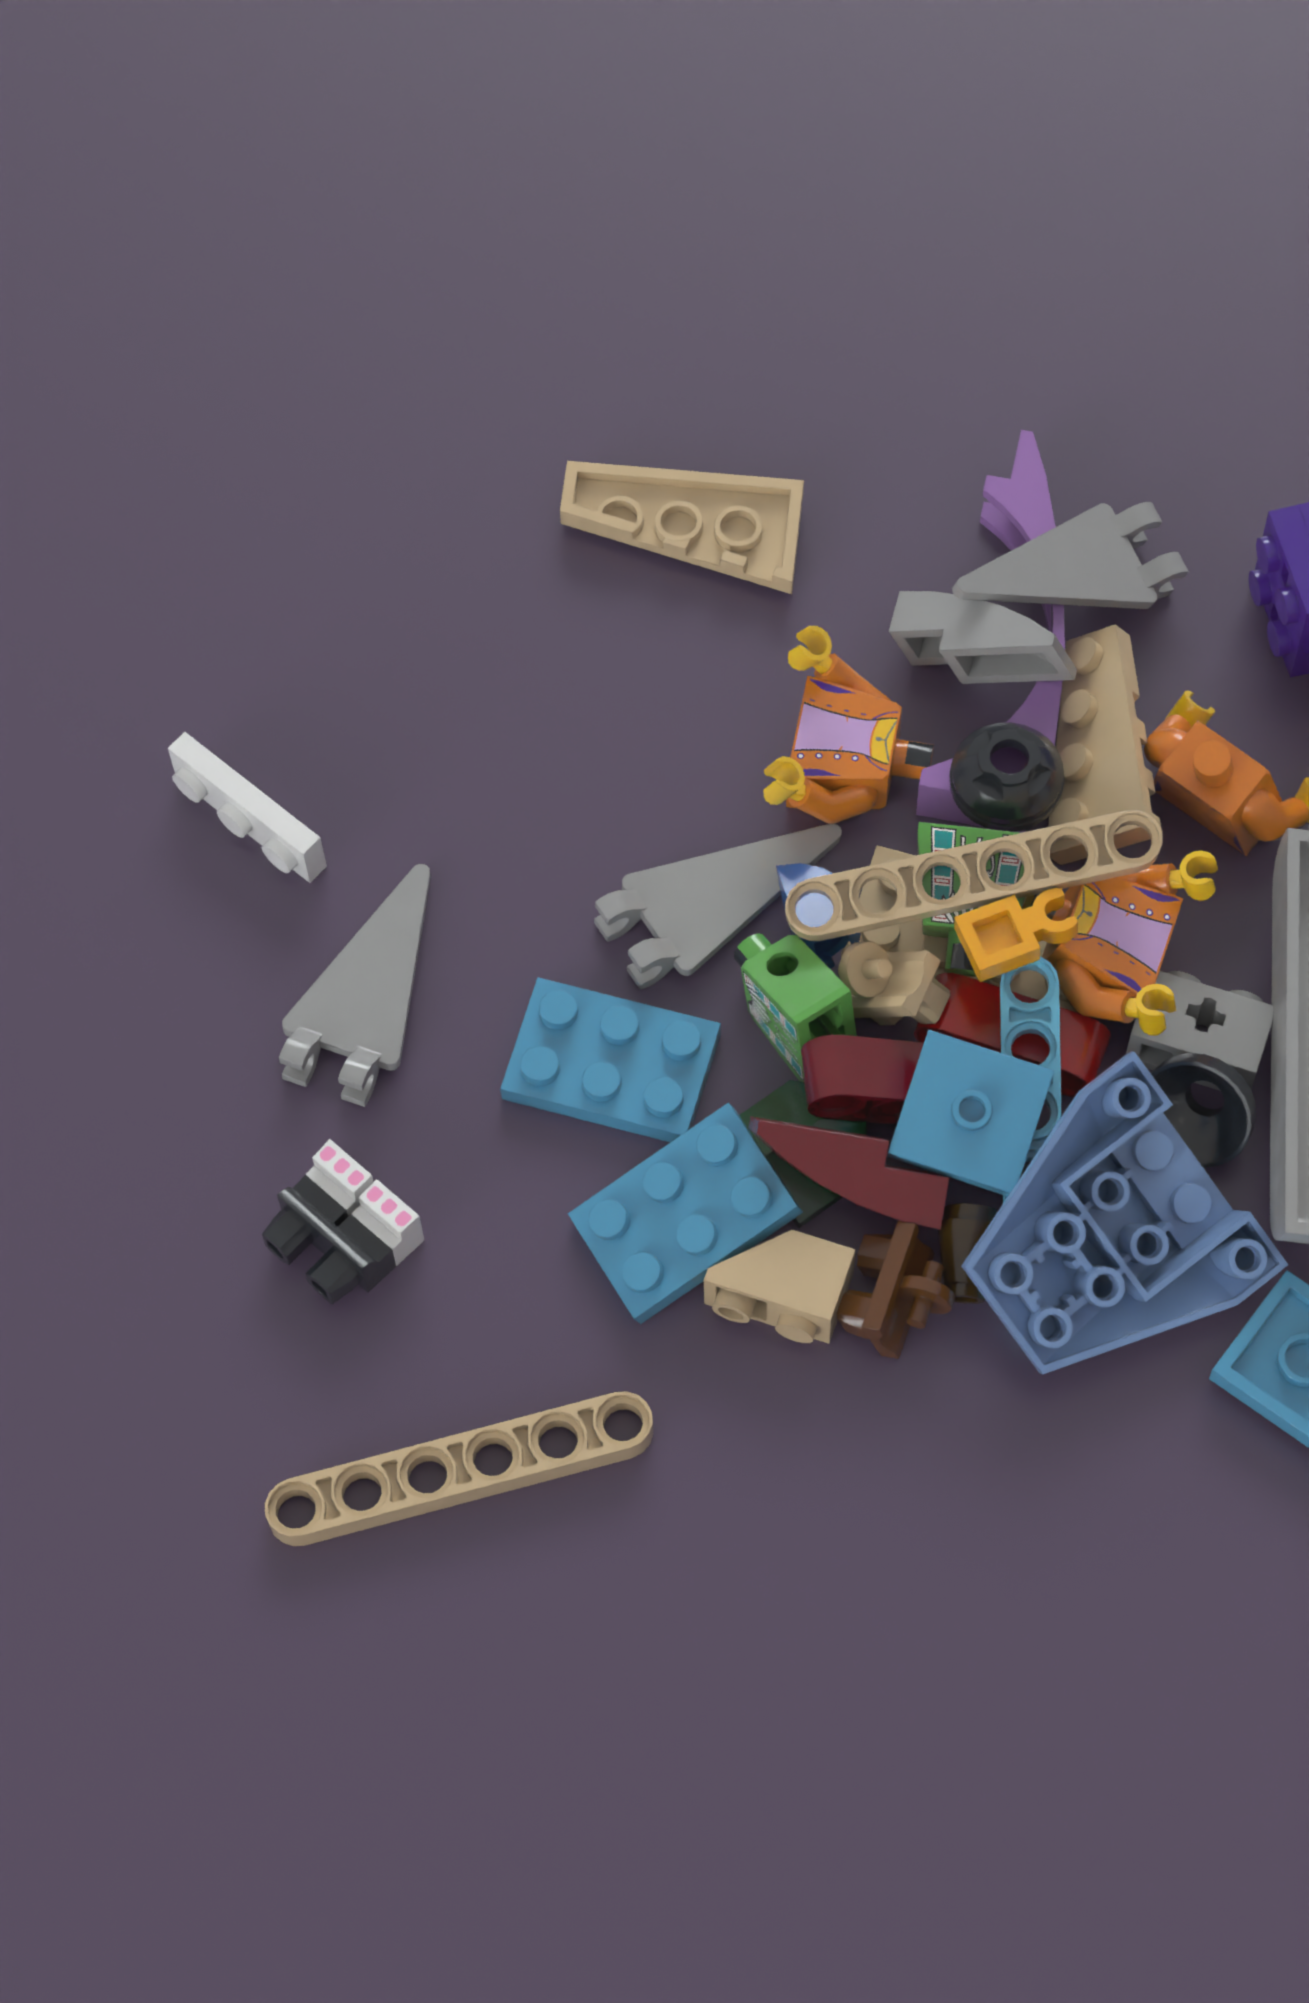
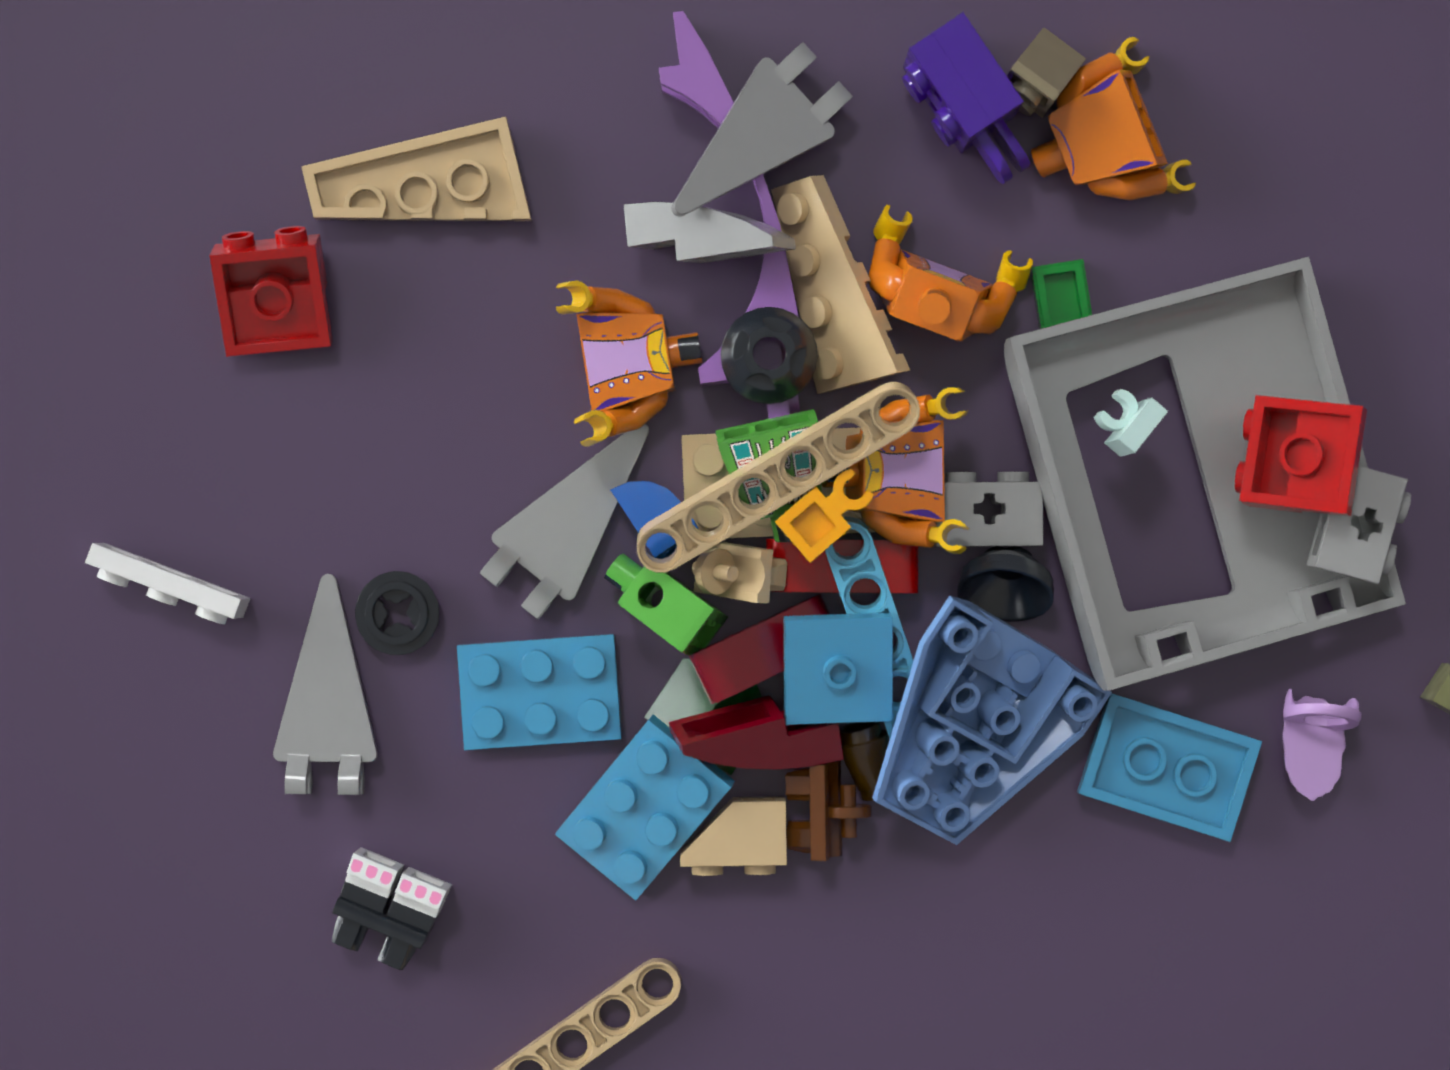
camera: 25 degrees left, 25 degrees up
(484, 566) = (271, 292): none -> red plate
(495, 902) = (372, 613): none -> black gear

